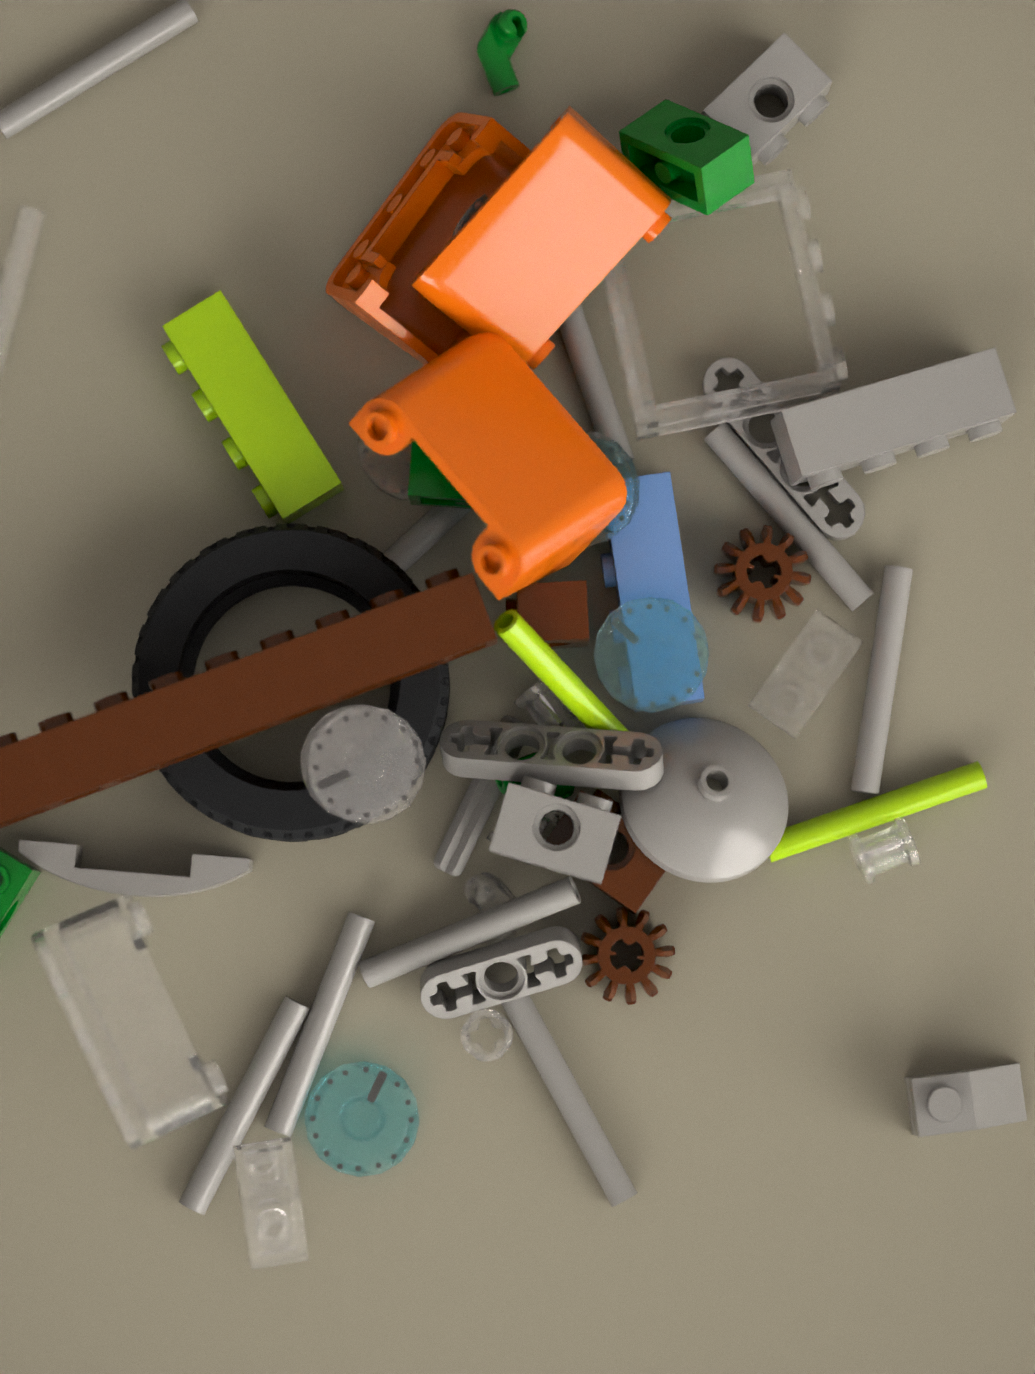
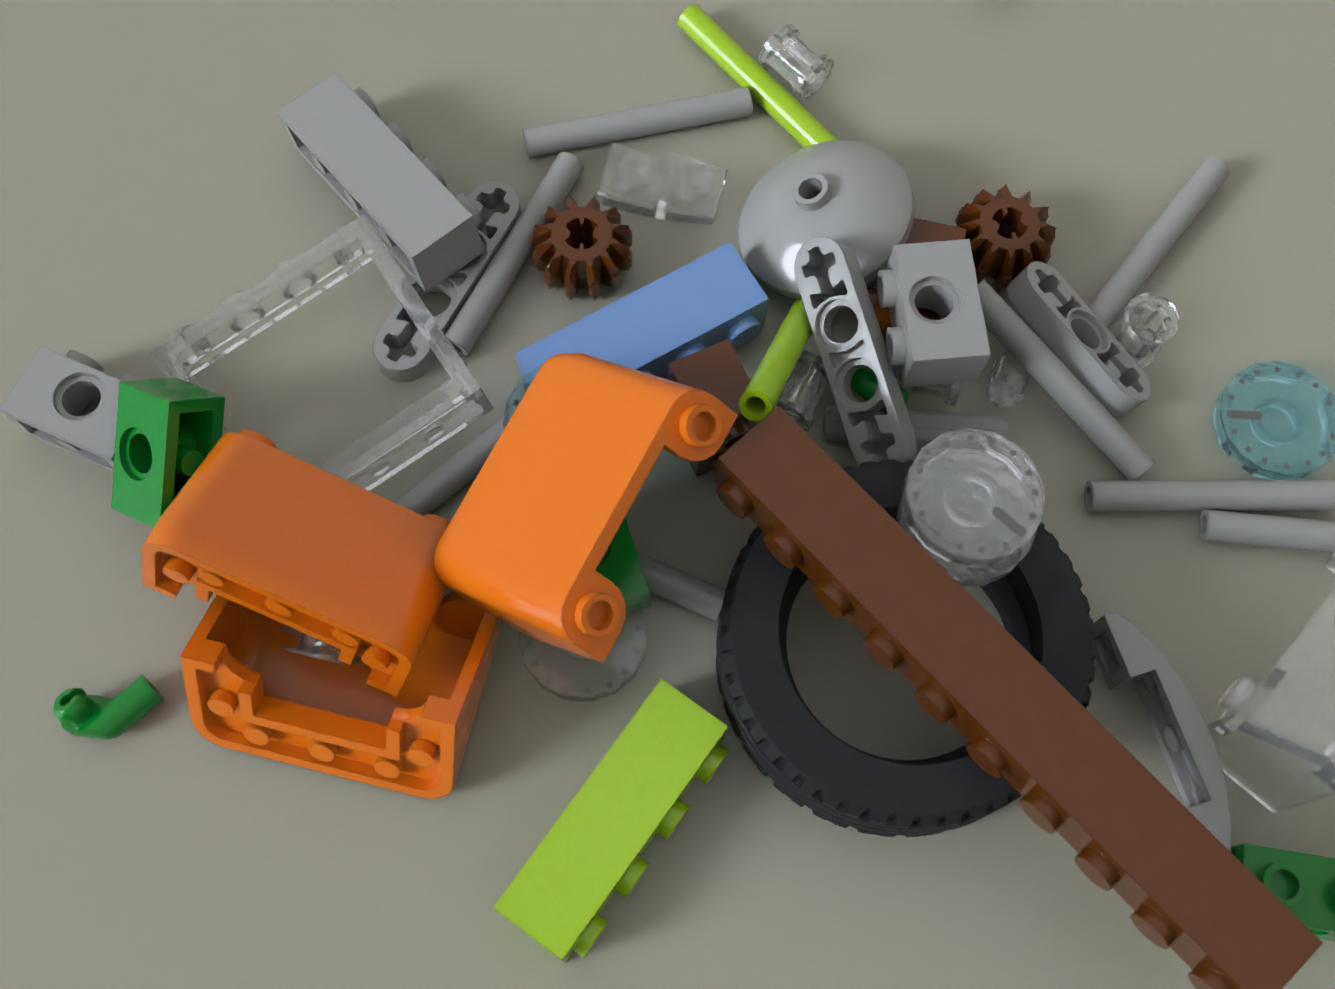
camera: 115 degrees left, 15 degrees down
(651, 654) = (710, 297): clear light blue tile -> none

